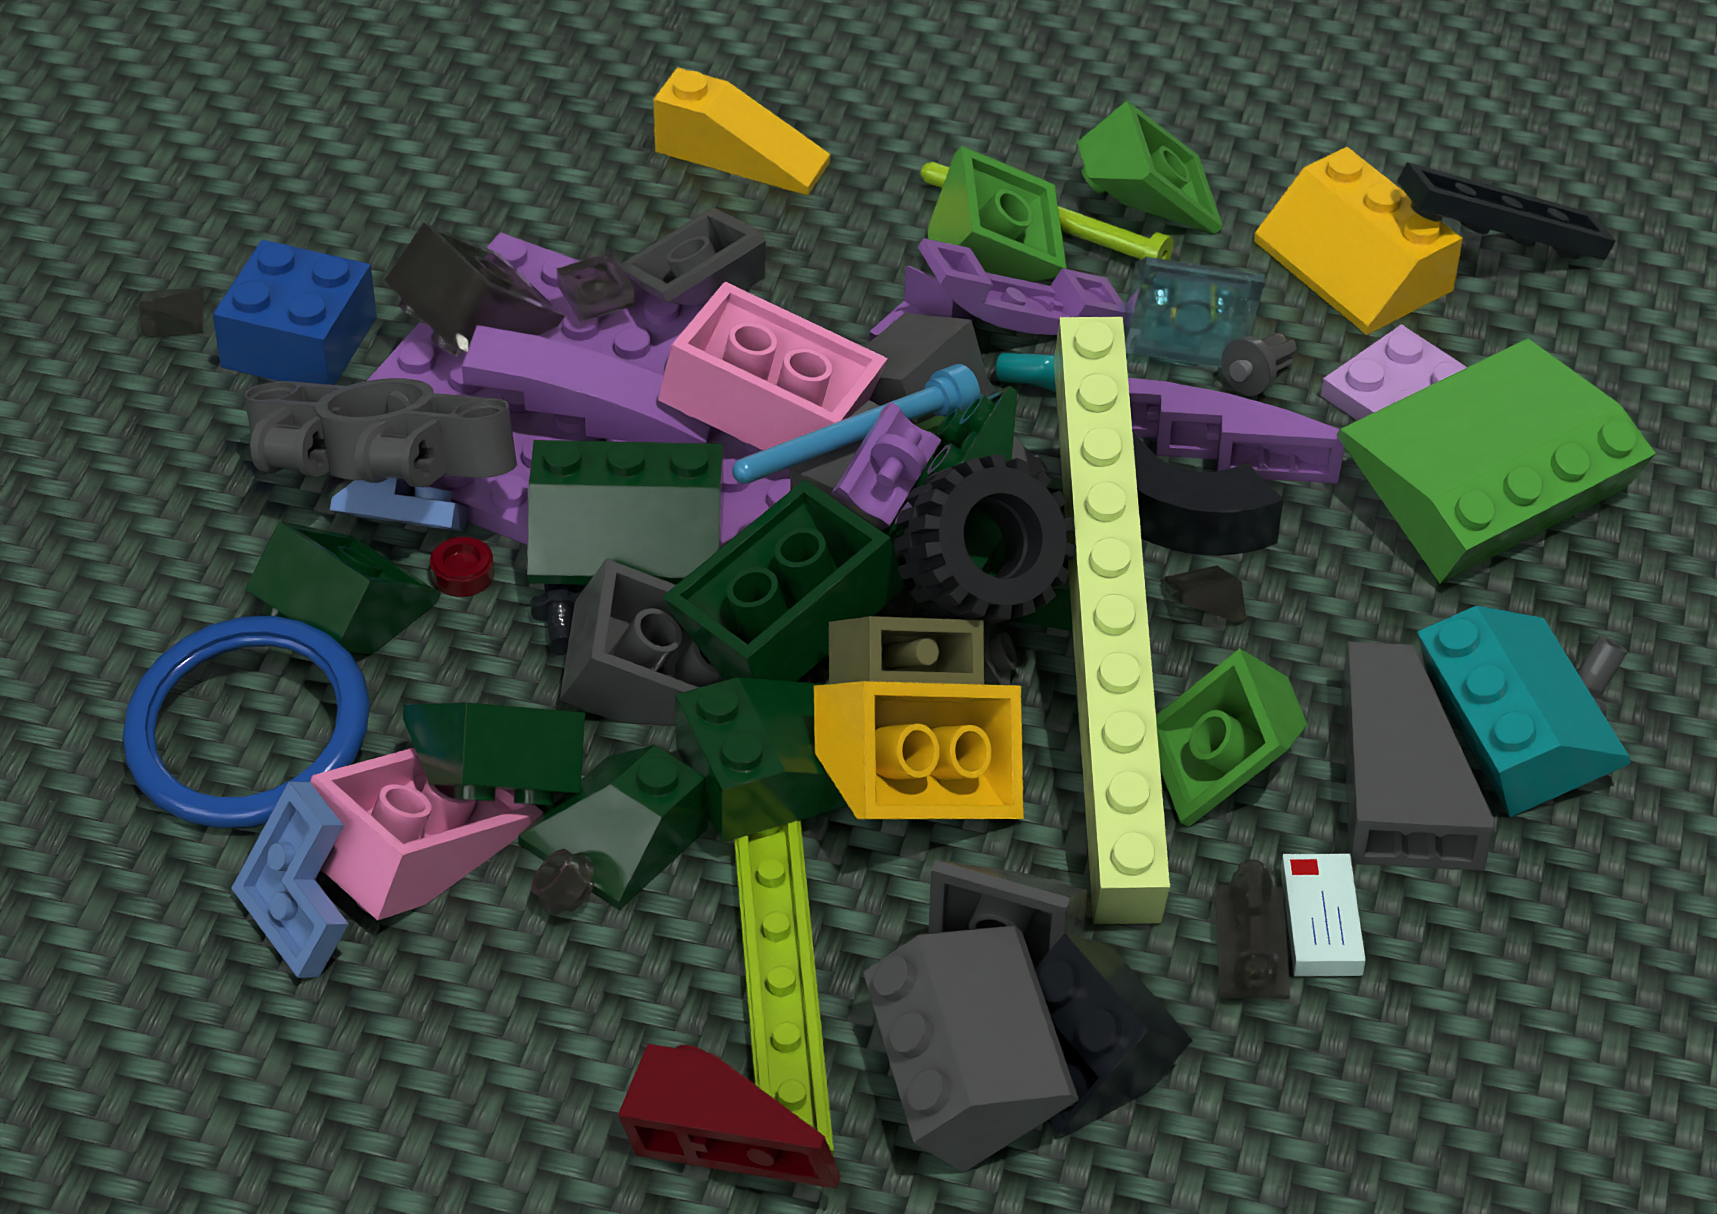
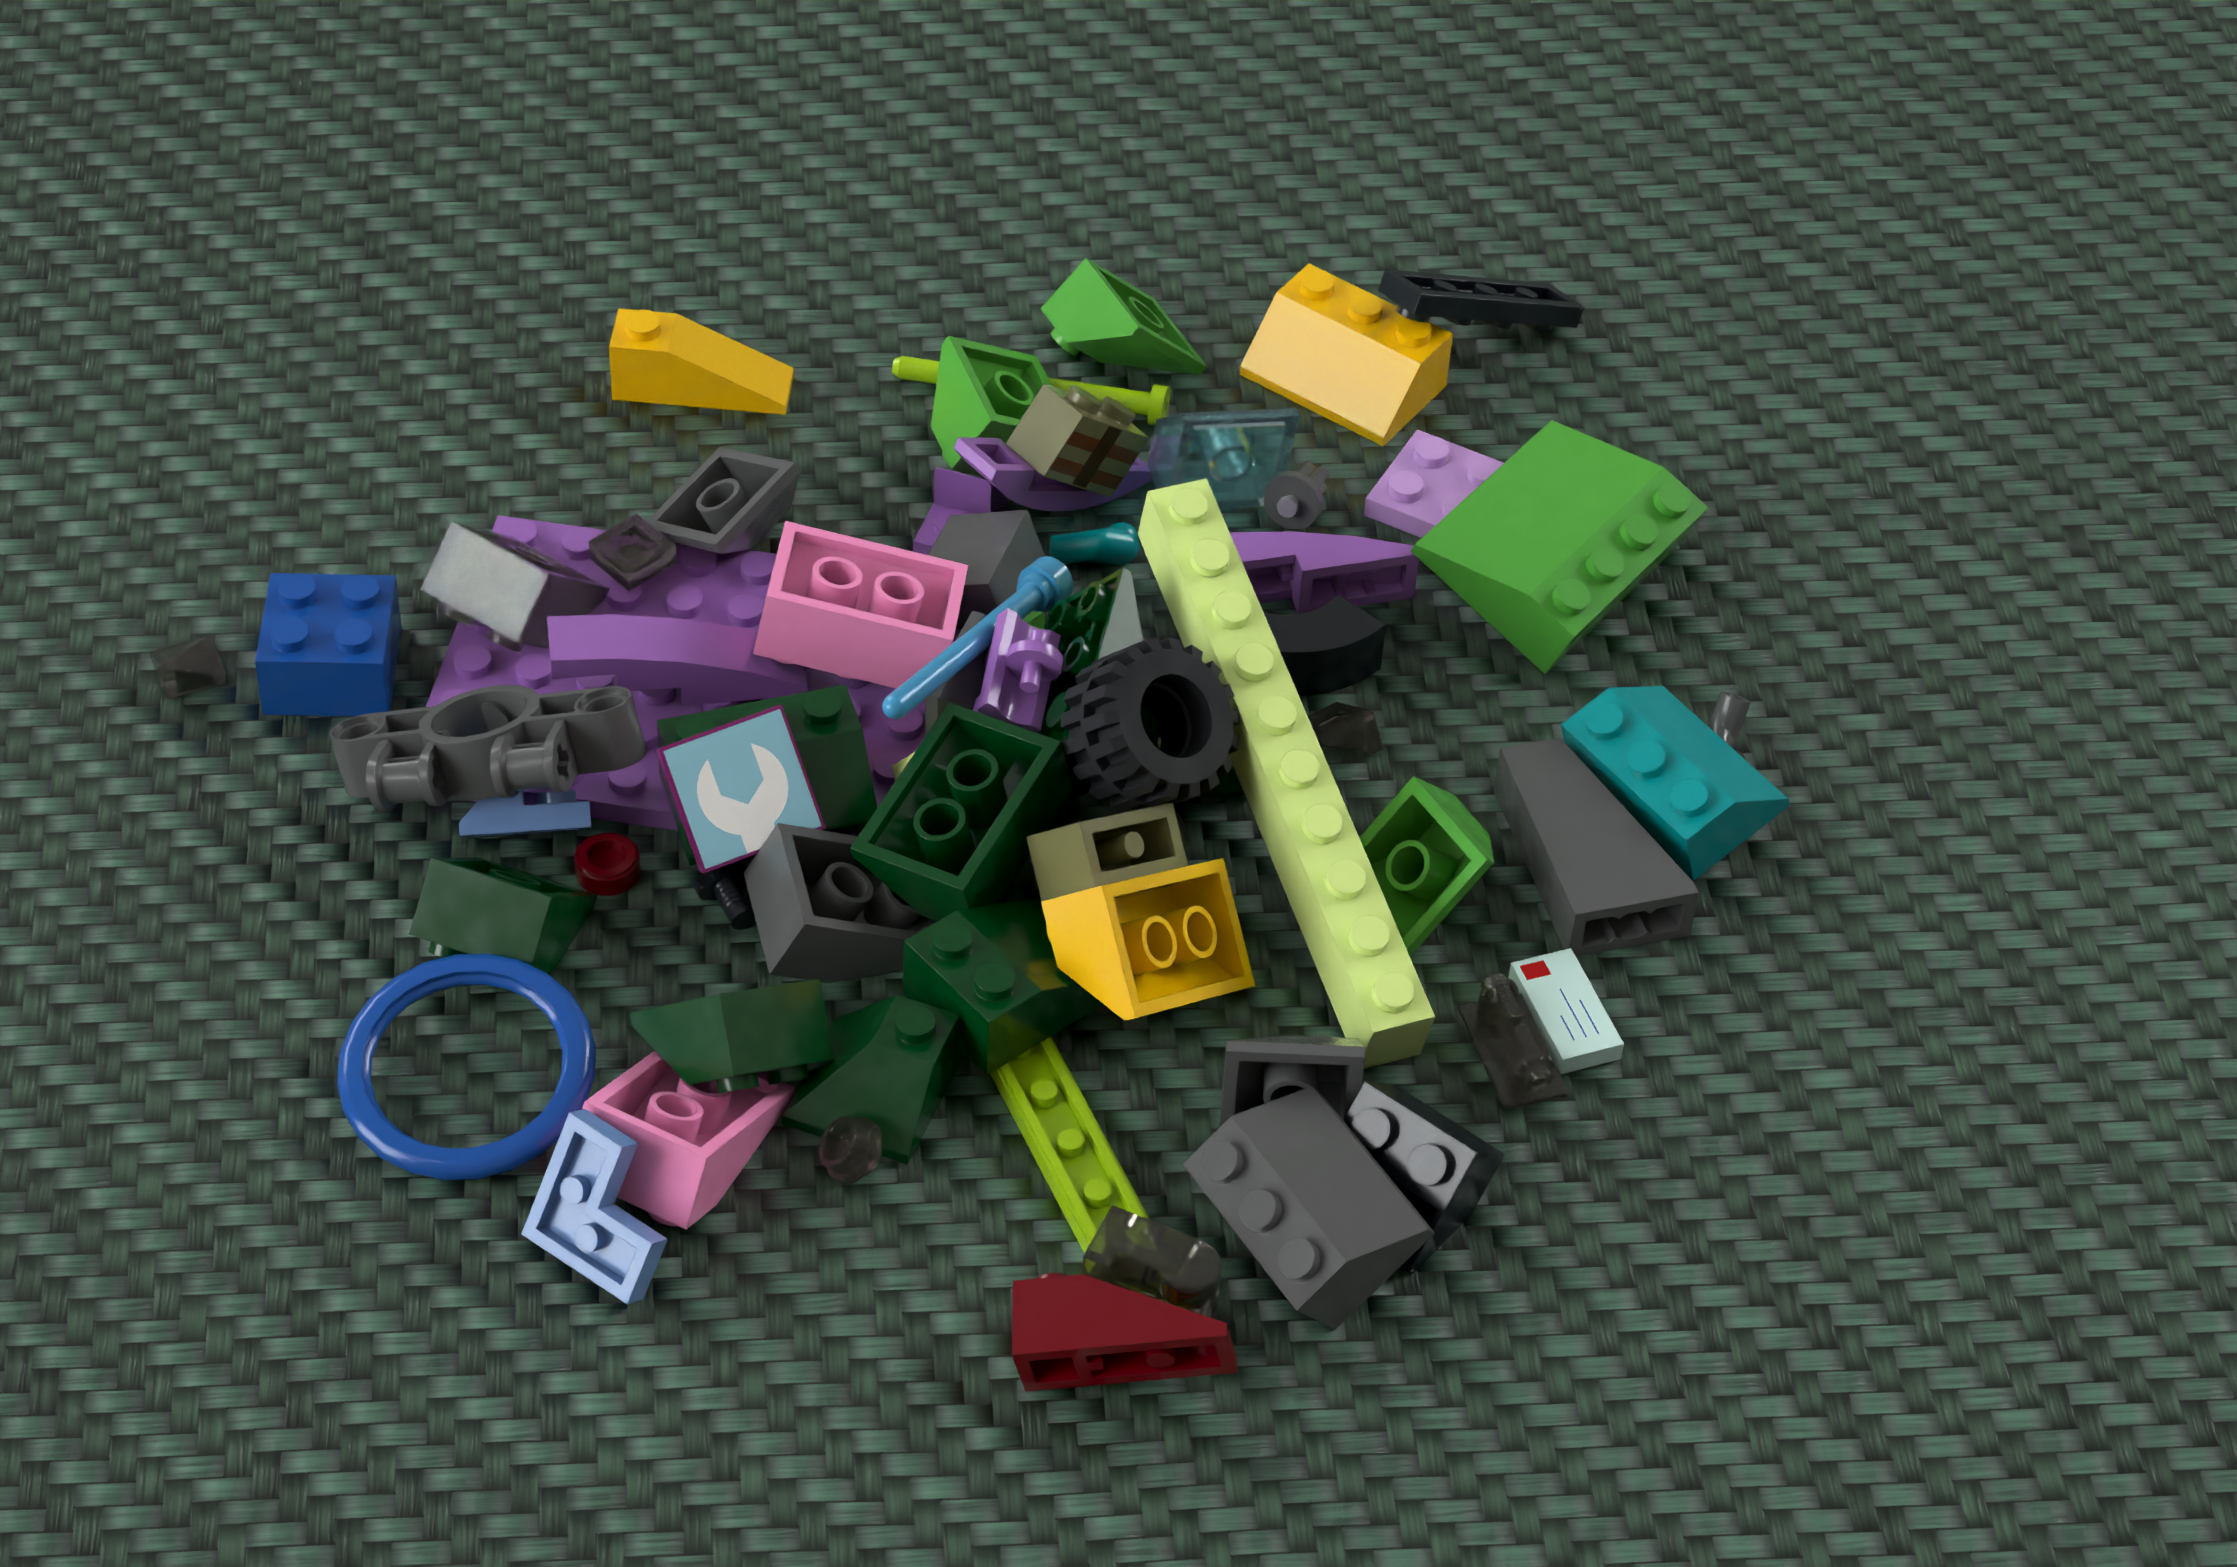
camera: 20 degrees left, 0 degrees up
(583, 513) = (738, 786): none -> medium azure tile
(792, 1062) = (1154, 1261): none -> clear smoke leg
(1047, 263) = (1078, 439): none -> olive brick

